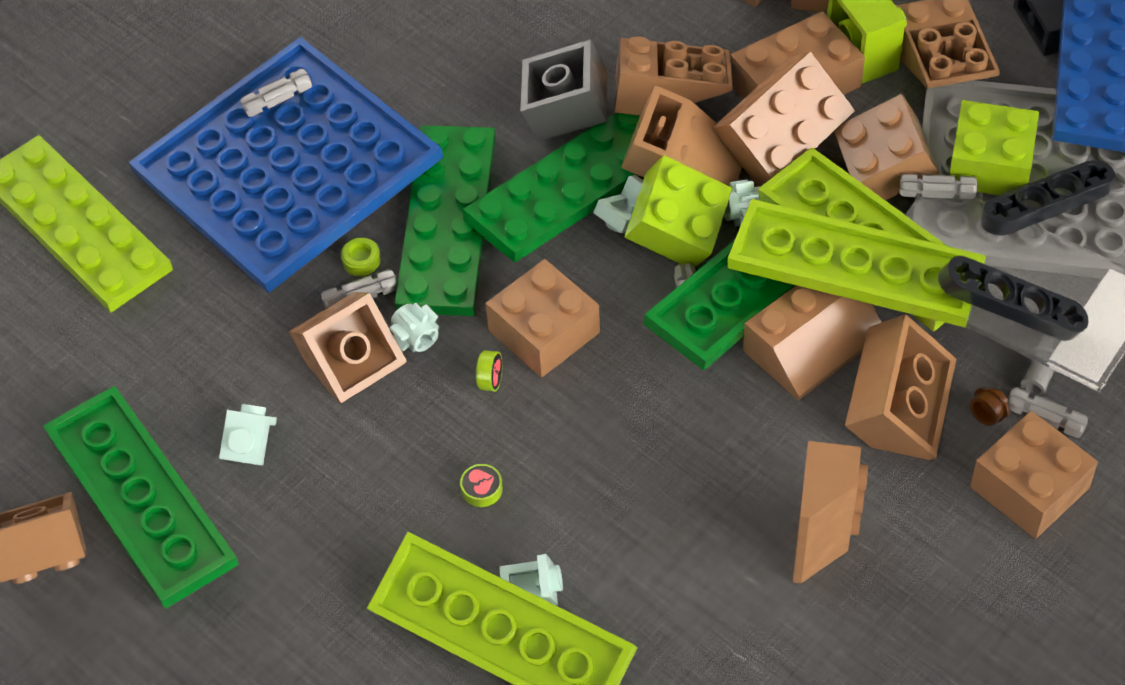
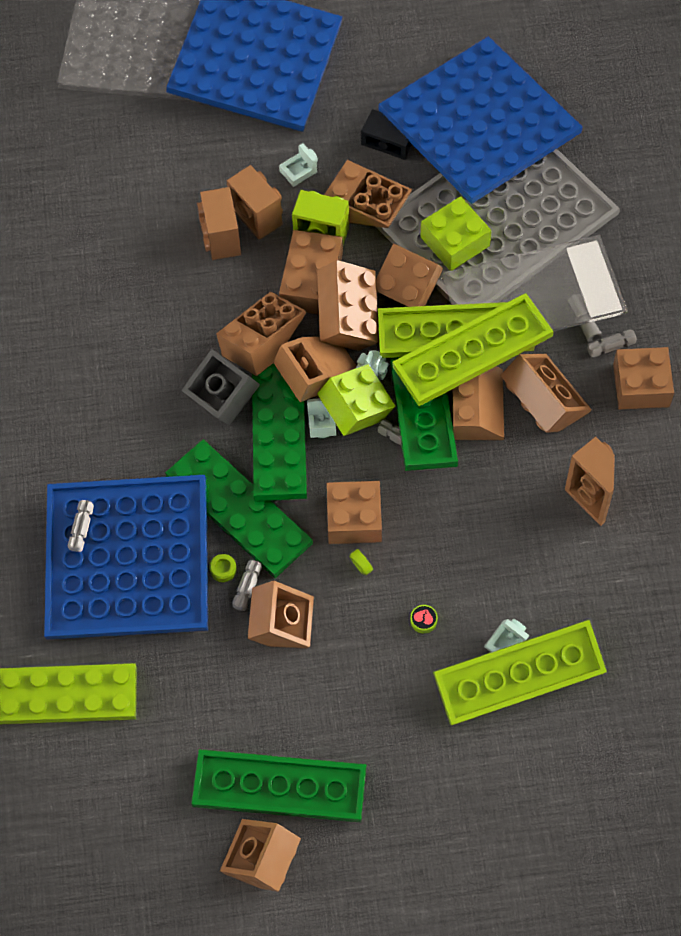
camera: 50 degrees left, 10 degrees up
(246, 435) = (291, 706): light aqua bracket -> none
(414, 327) = (302, 576): light aqua gear -> none
(938, 186) = (452, 275): light grey axle -> none
(989, 406) = (587, 363): reddish brown plate -> none
(1051, 202) = (504, 236): black beam -> none
(1061, 309) = (555, 298): black beam -> none

